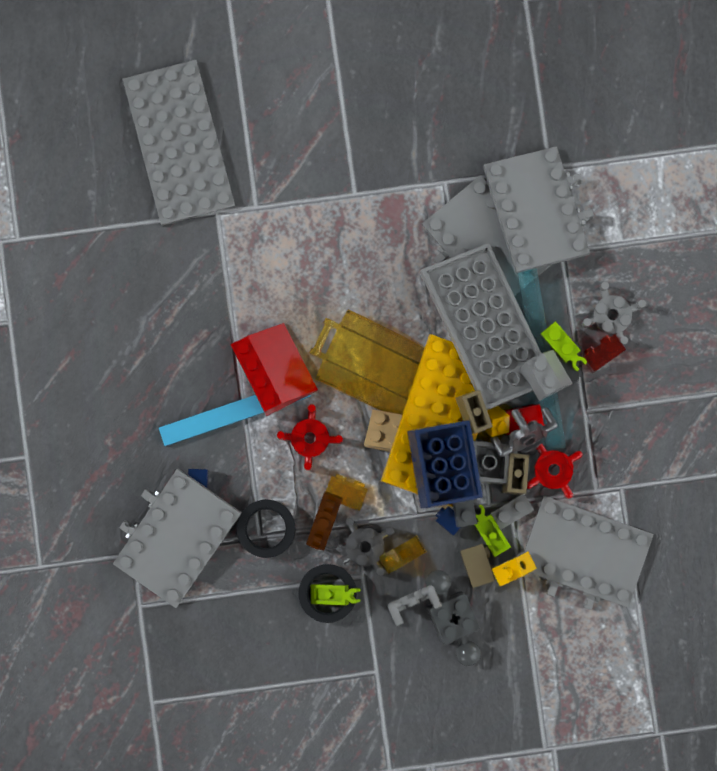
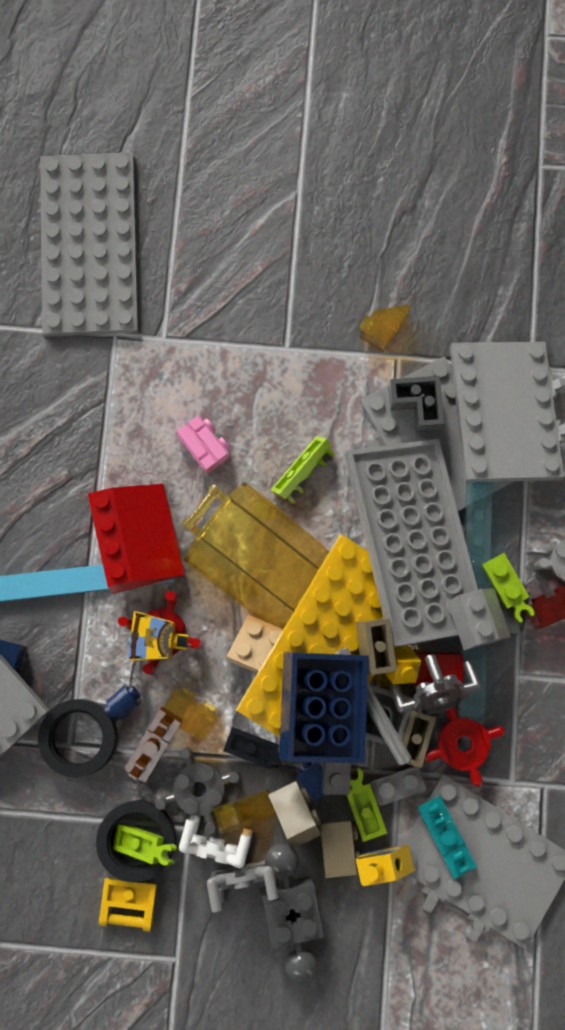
camera: 15 degrees right, 5 degrees down
(293, 495) = (122, 702): none -> dark blue brick
(307, 442) = (154, 638): none -> torso
(308, 286) = (203, 444): none -> bright pink brick
(329, 634) = (129, 896): none -> yellow plate
(387, 584) = (214, 848): none -> white plate
(389, 288) = (302, 468): none -> lime plate
(399, 508) = (253, 749): none -> black plate
(427, 161) = (383, 325): none -> clear yellow slope
(440, 548) = (294, 814): none -> brick
(468, 212) = (423, 396): none -> dark grey brick
(491, 467) = (384, 724): none -> light grey axle
(555, 540) = (446, 837): none -> teal plate

